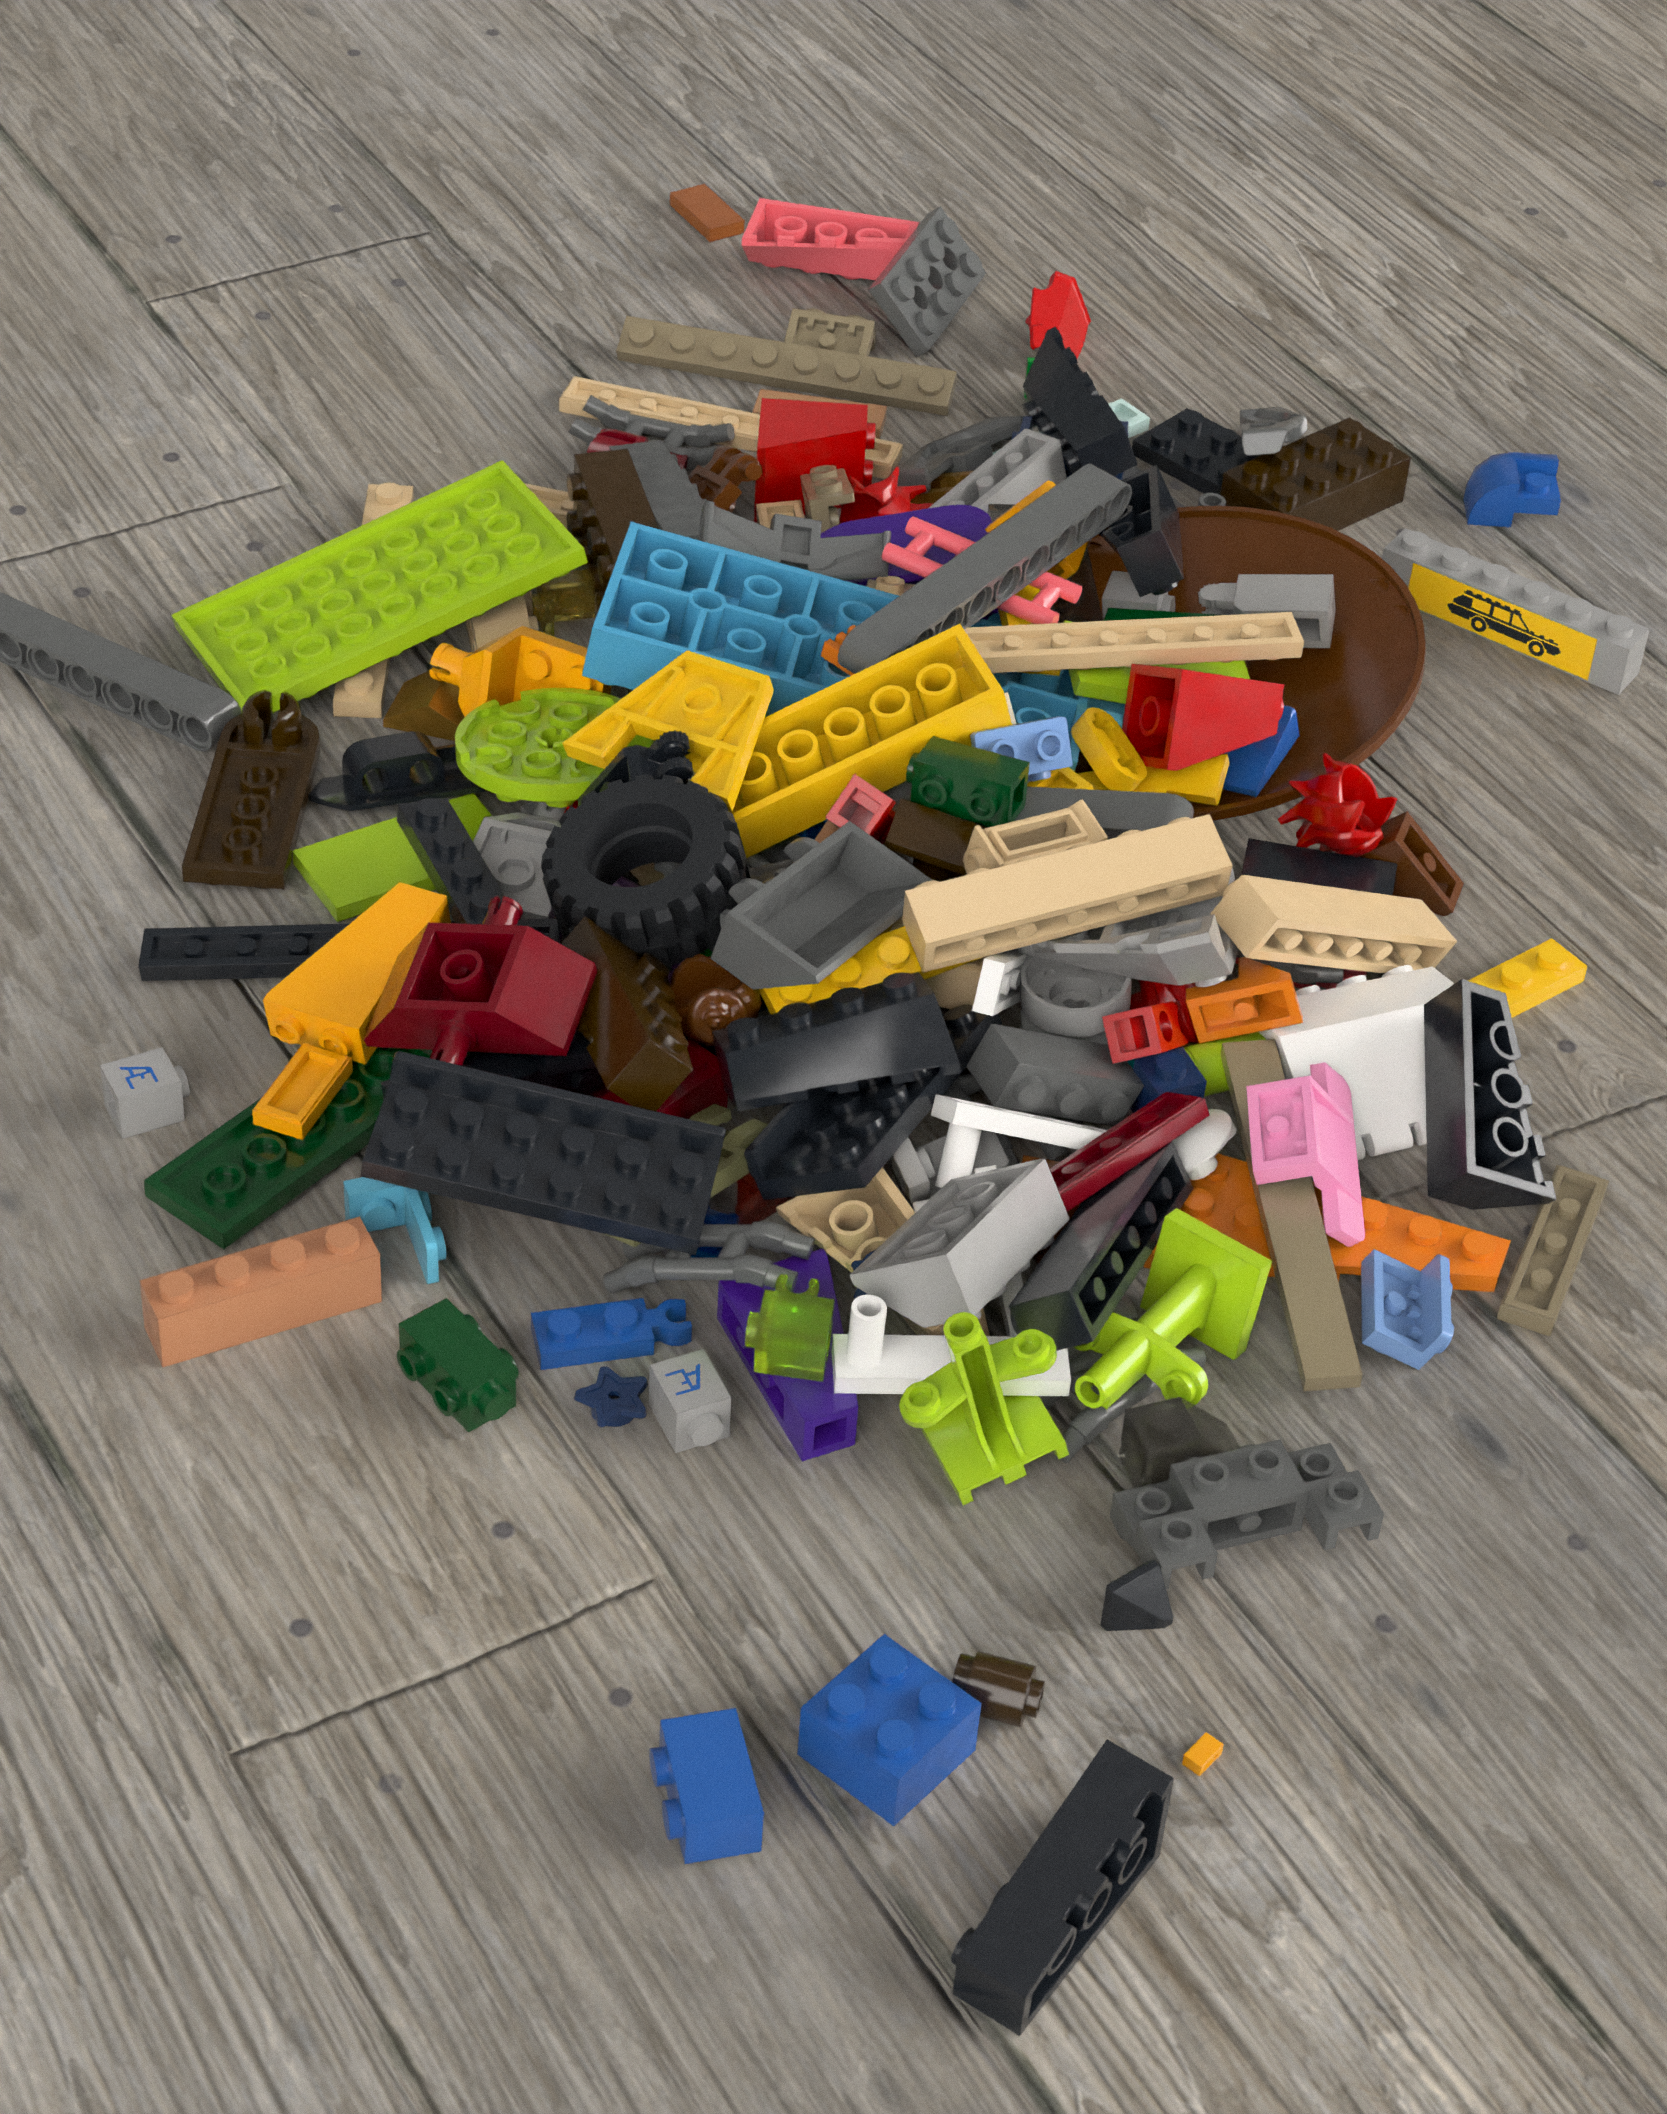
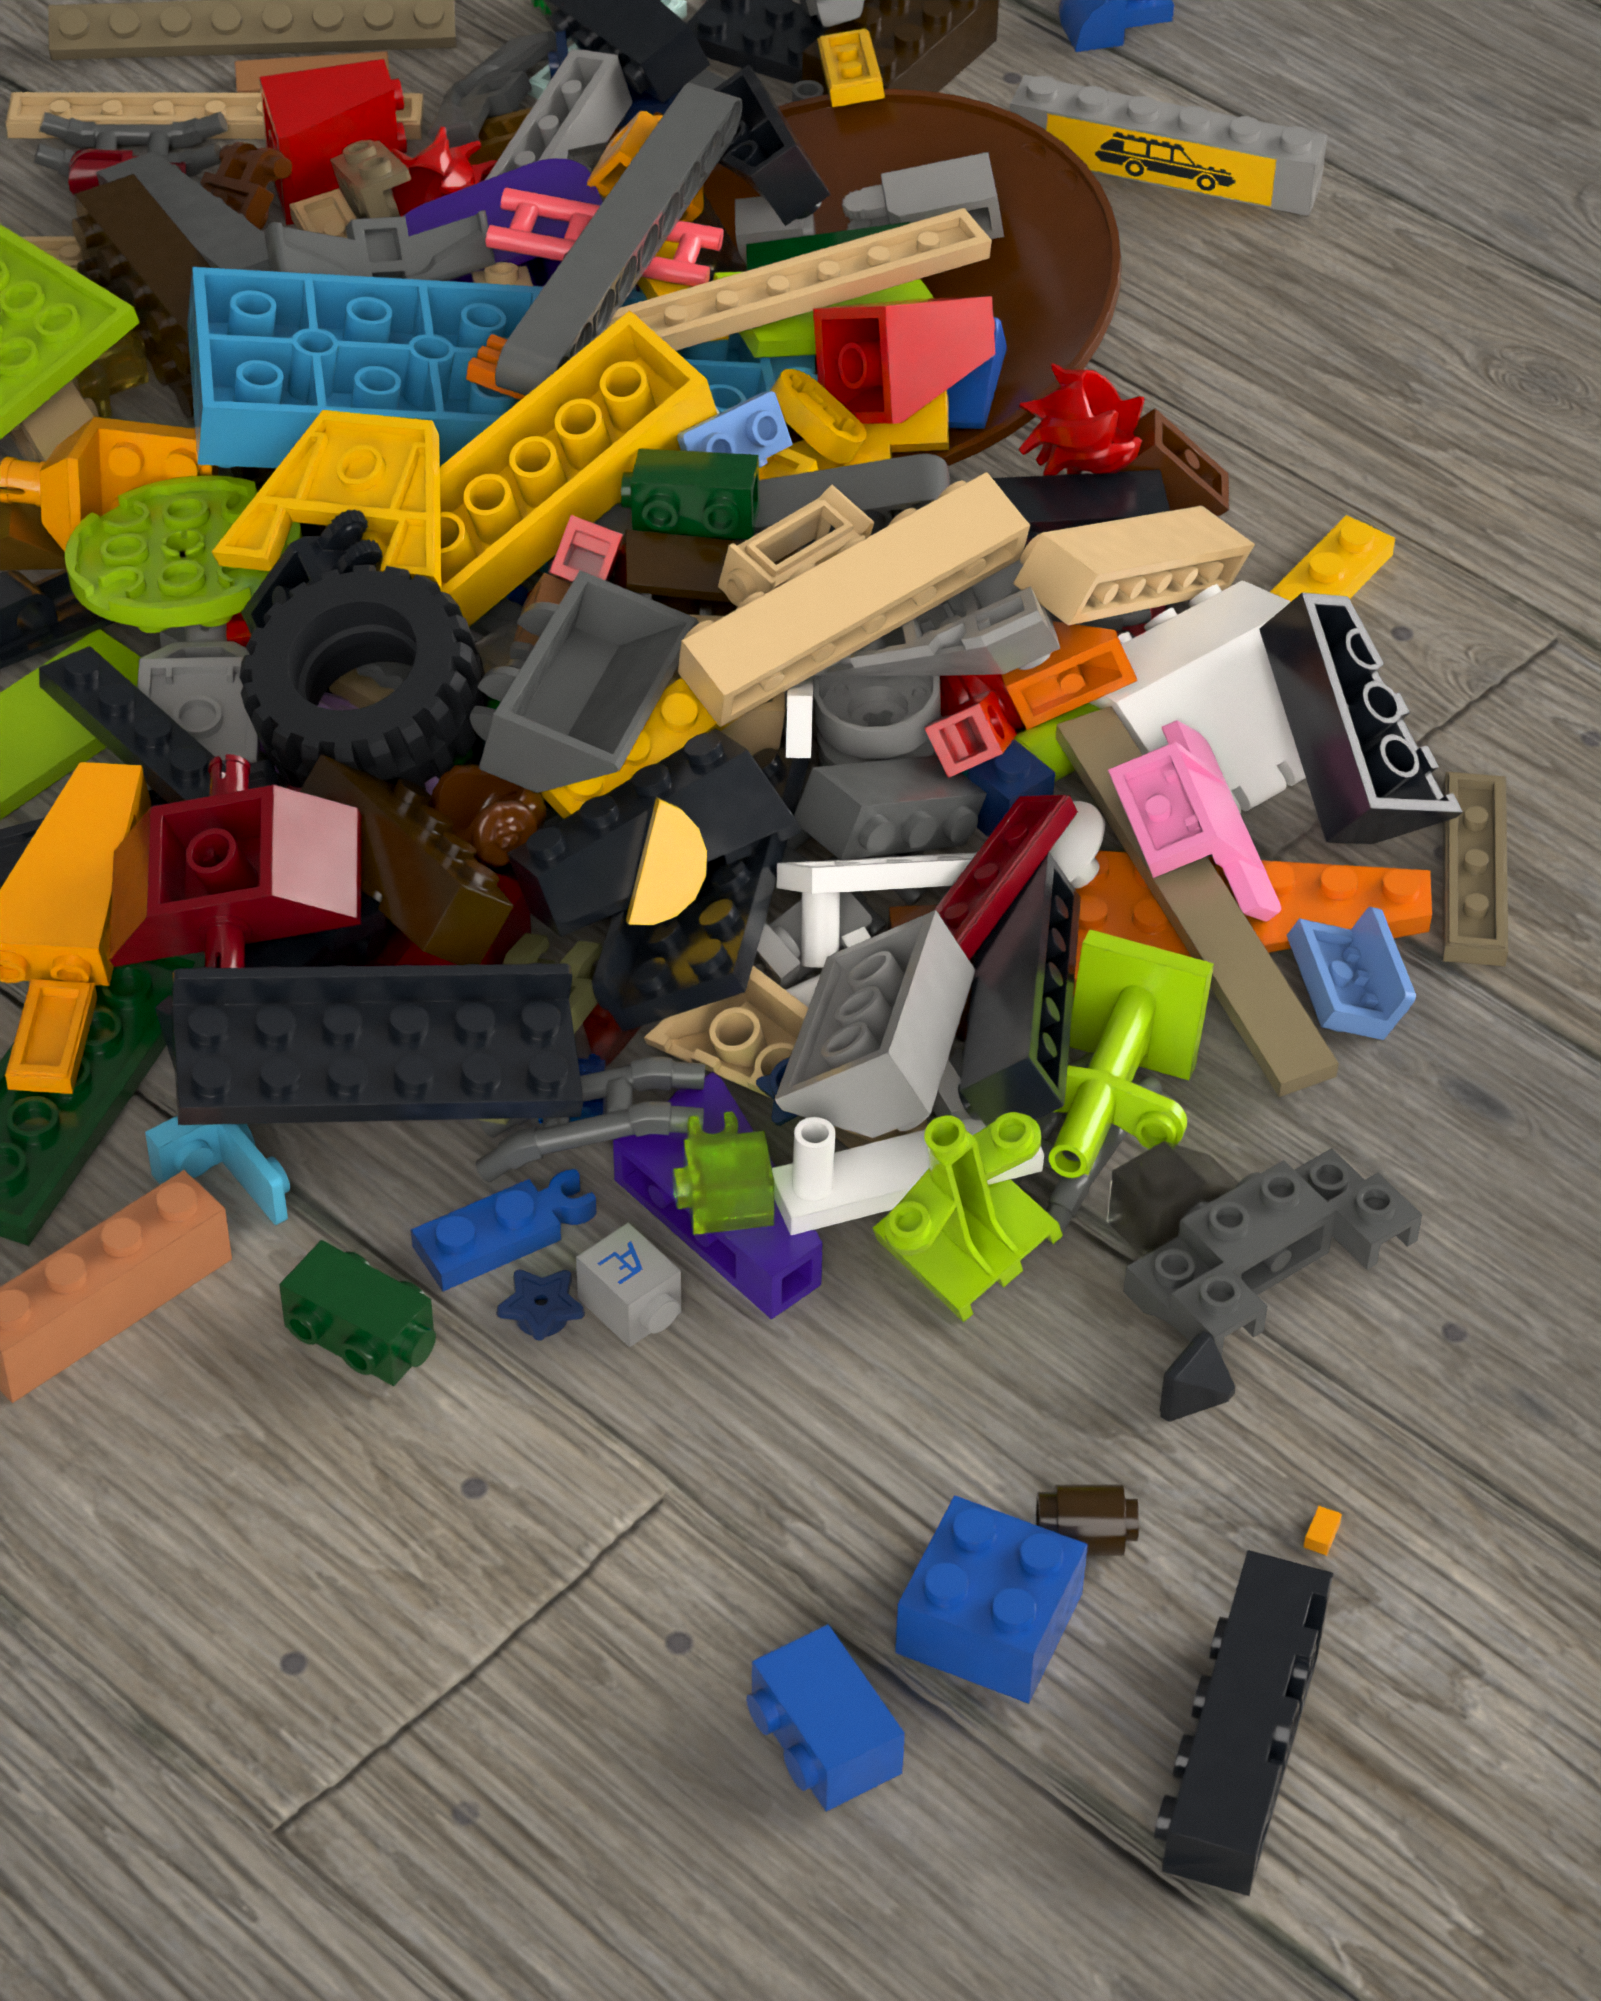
camera: 15 degrees left, 5 degrees up
(840, 1073) = (669, 867): none -> yellow tile
(1251, 489) = (850, 67): none -> yellow tile

